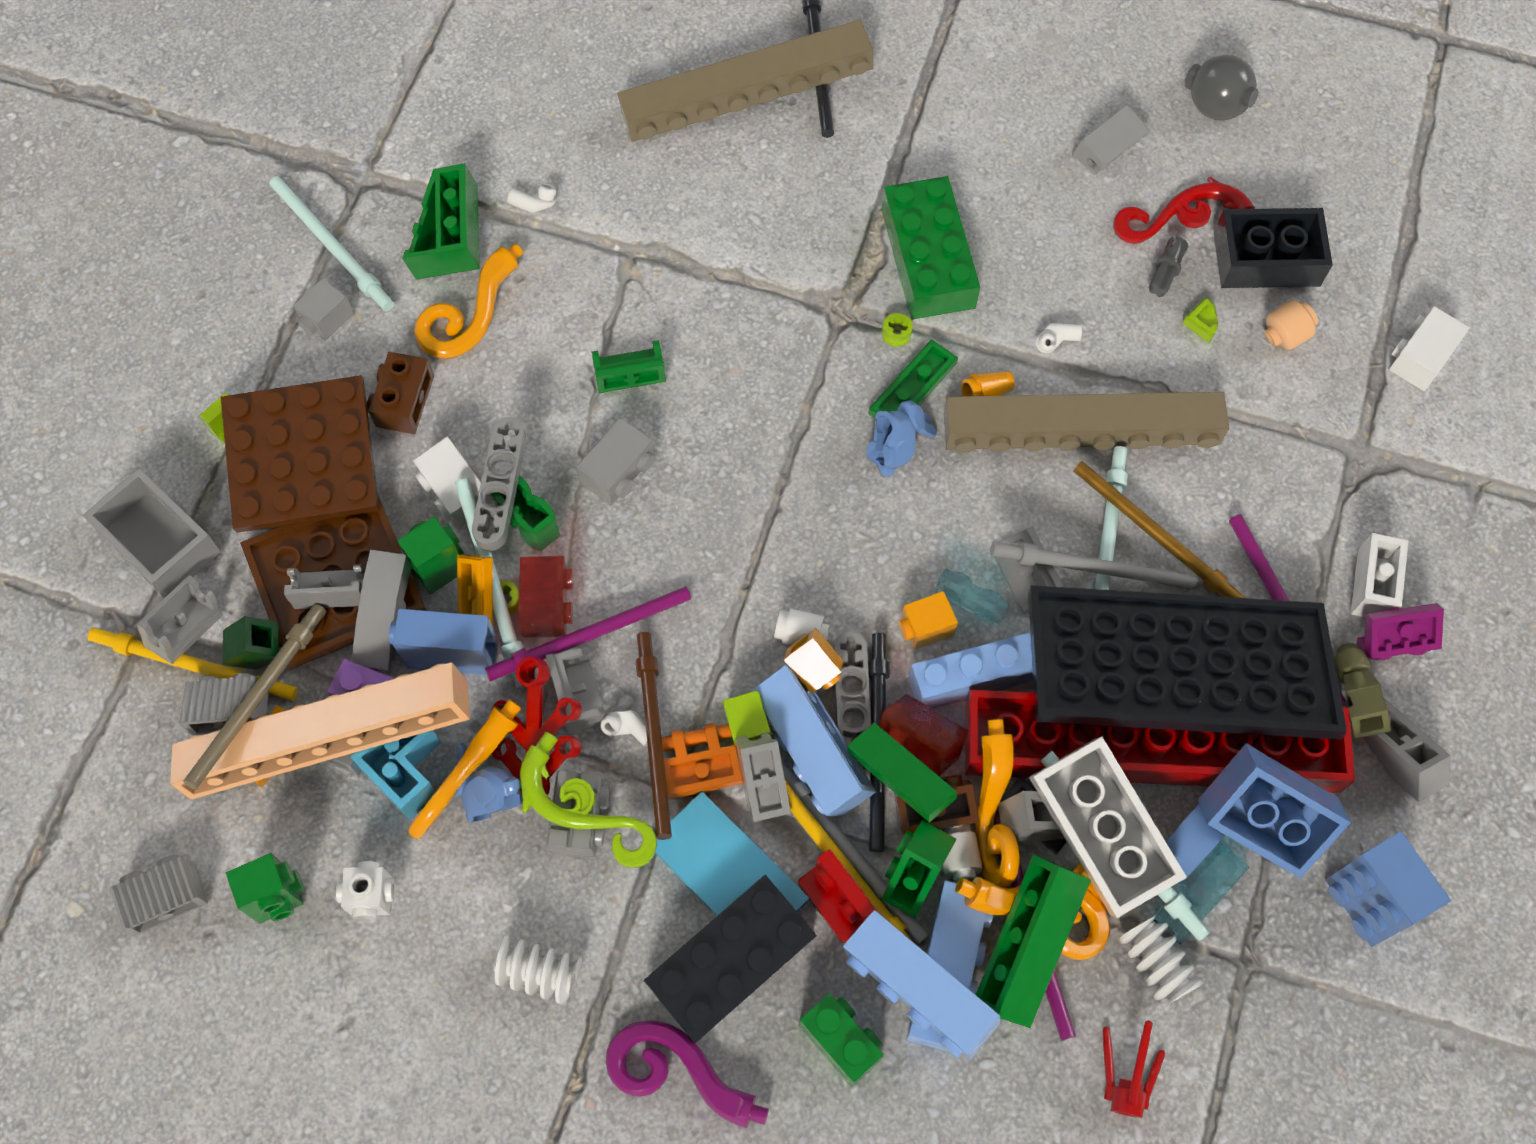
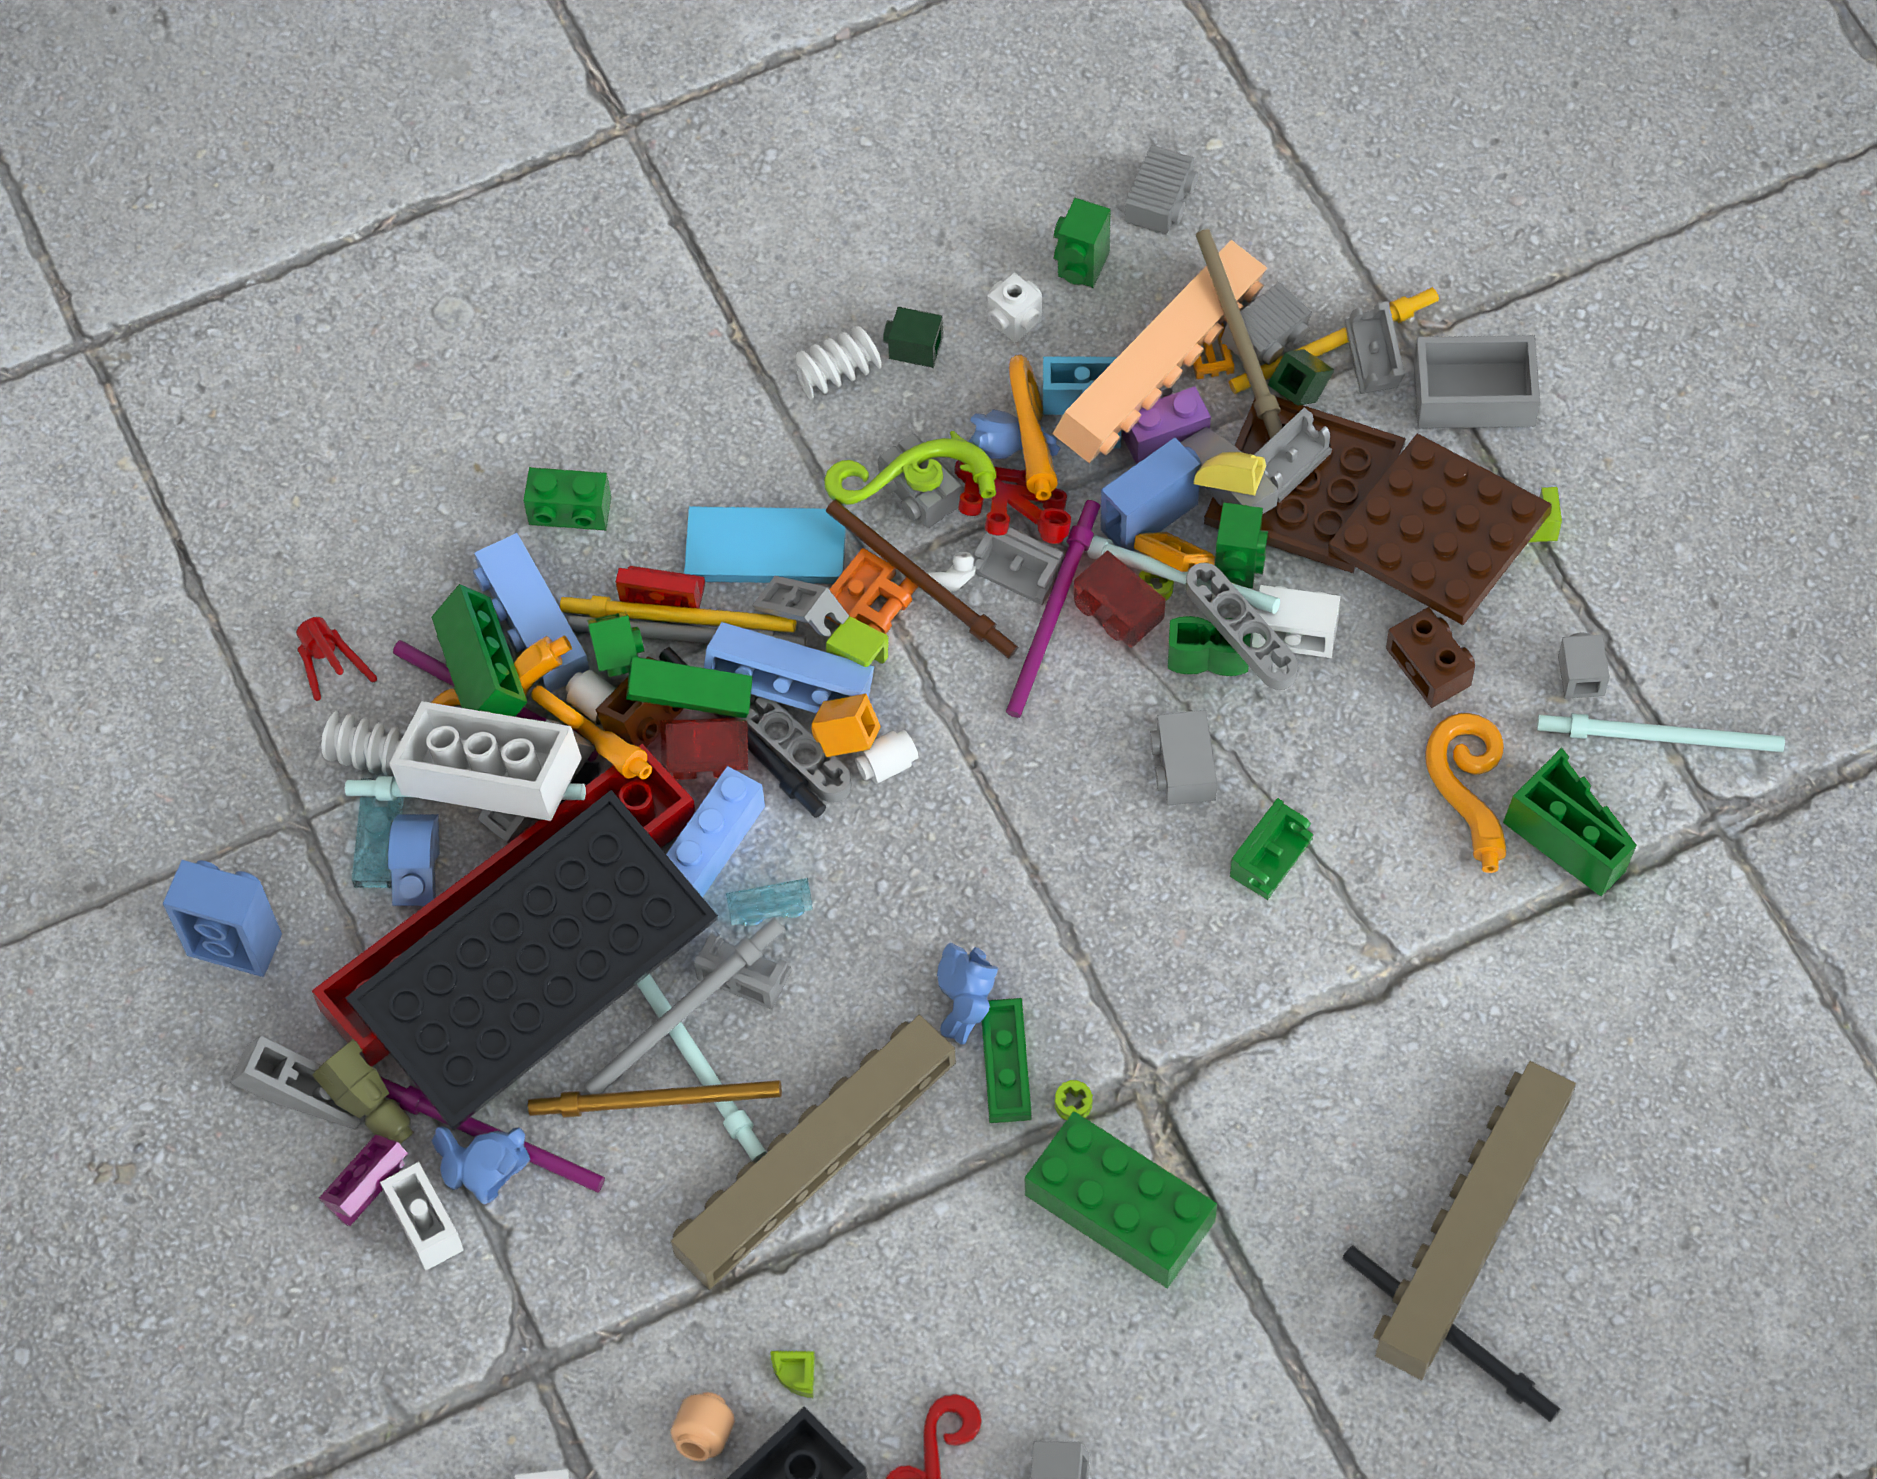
camera: 140 degrees right, 5 degrees down
(385, 583) = (1232, 472): none -> light yellow brick
(459, 939) = (914, 336): none -> dark green brick
(533, 203) = (1533, 928): white arm -> none
(724, 1100) = (618, 401): magenta plant -> none
(729, 958) = (700, 477): black brick -> none
(922, 985) = (535, 558): light blue brick -> none
(927, 620) = (788, 850): light orange brick -> none
(988, 384) = (935, 1108): light orange cone -> none
(1055, 333) = (922, 1223): white arm -> none
(1168, 266) = (877, 1393): dark grey axle -> none
(1273, 811) = (362, 905): medium blue brick -> none
(1307, 581) = (484, 1164): none -> medium blue animal

